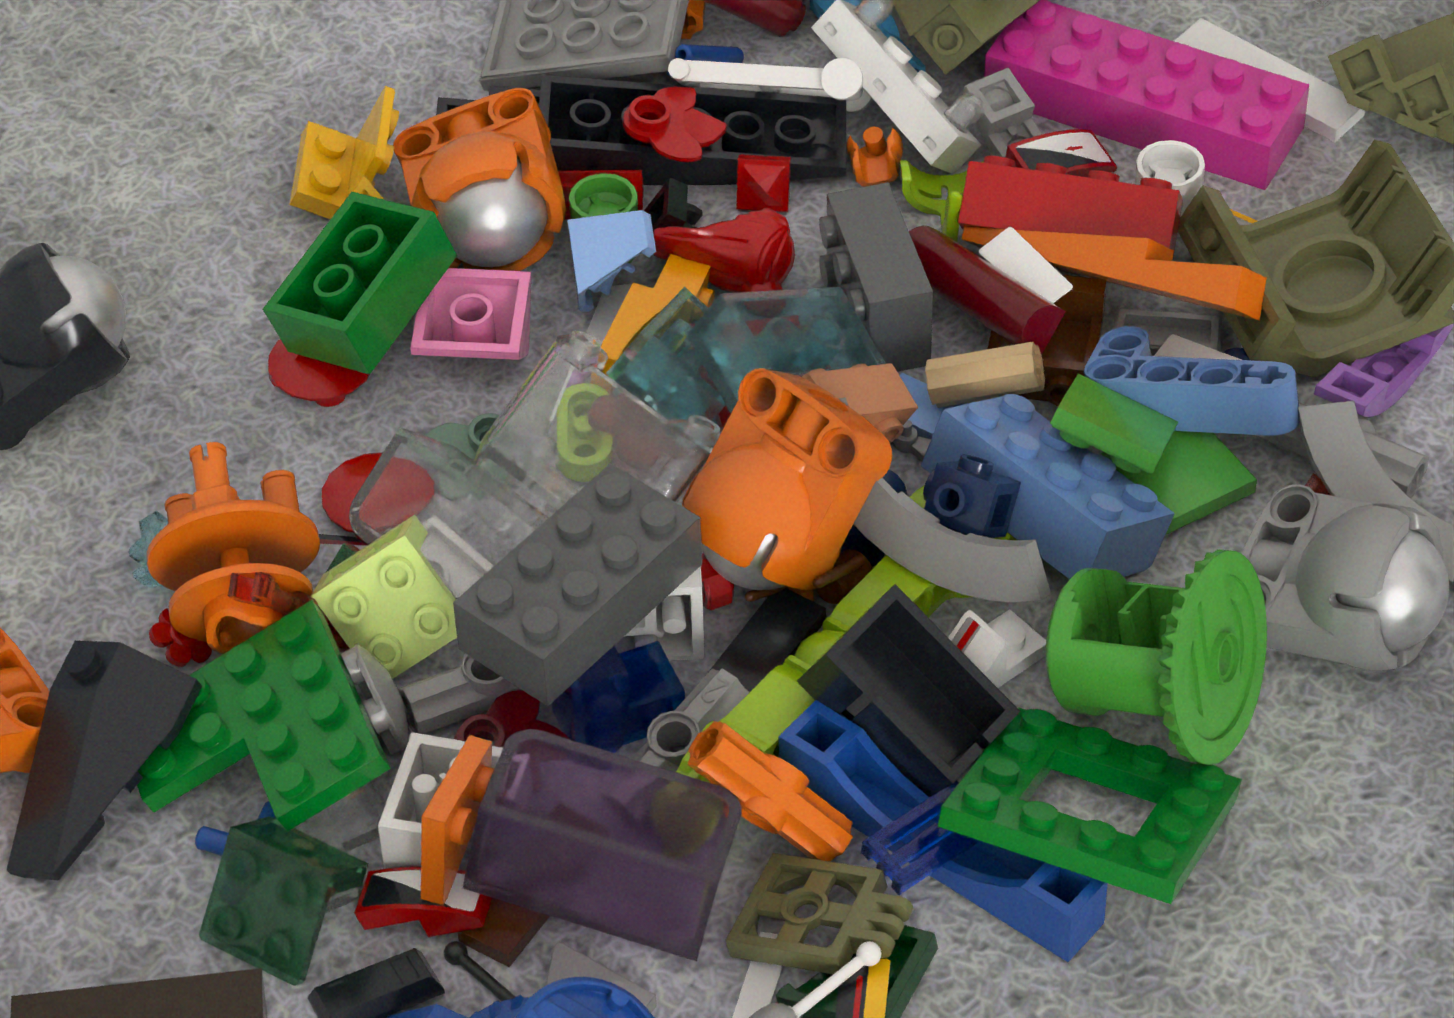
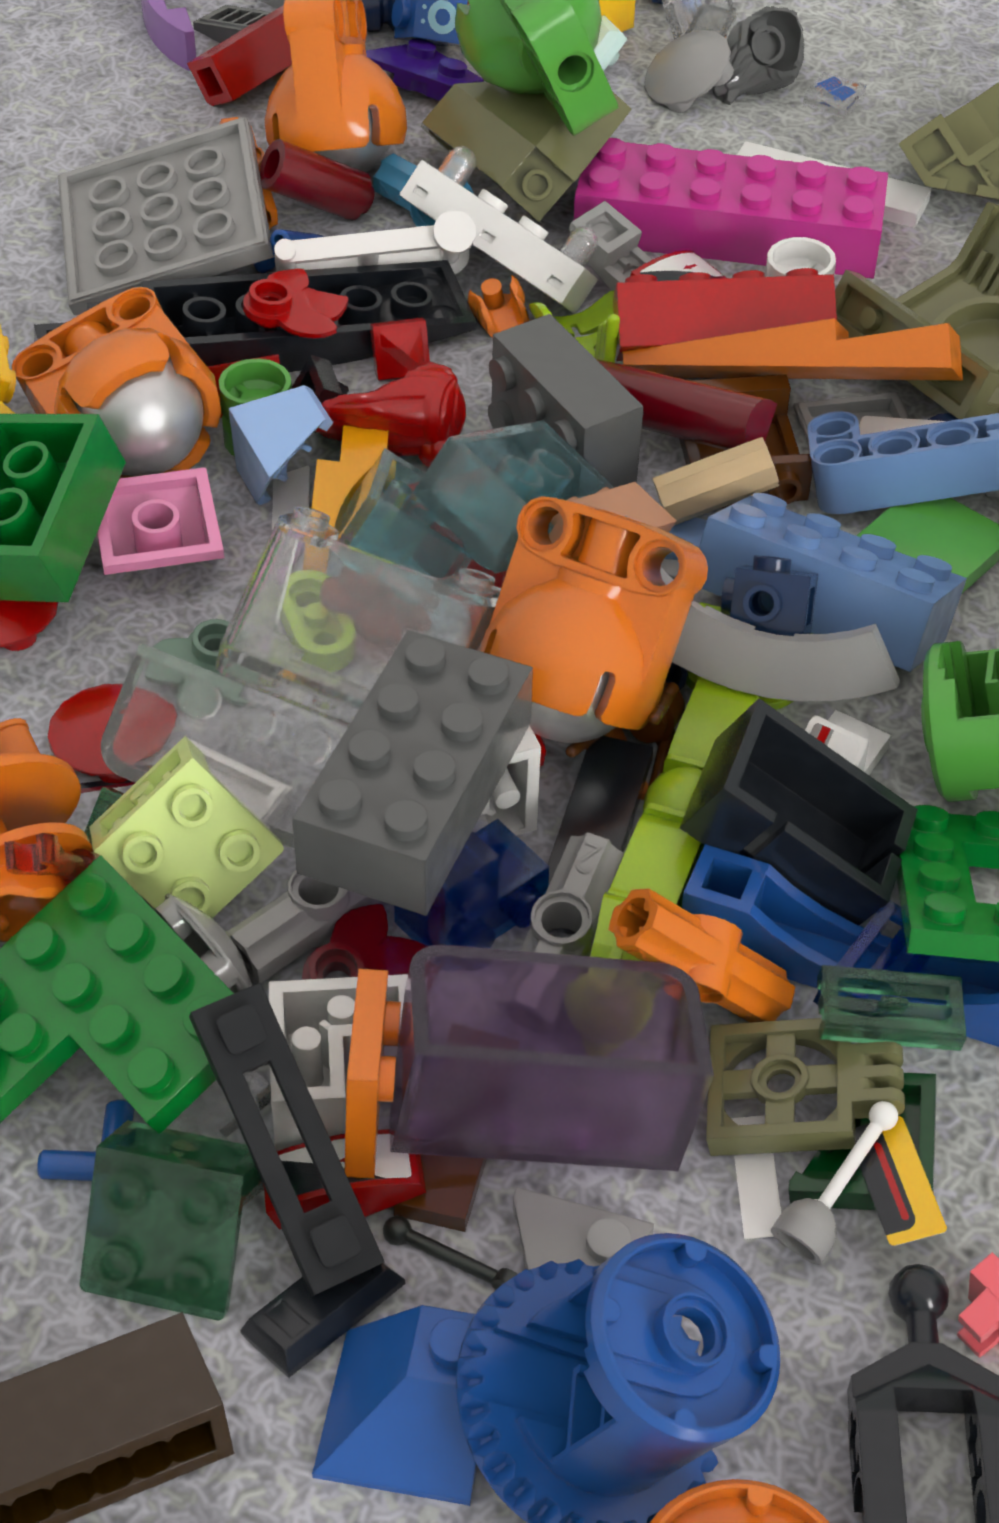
camera: 20 degrees left, 0 degrees up
(388, 941) = (335, 1237): none -> black container
(910, 877) = (891, 1017): none -> clear green tile
(1022, 262) = (695, 366): white sticker -> none
(1113, 424) = (858, 499): bright green tile -> none

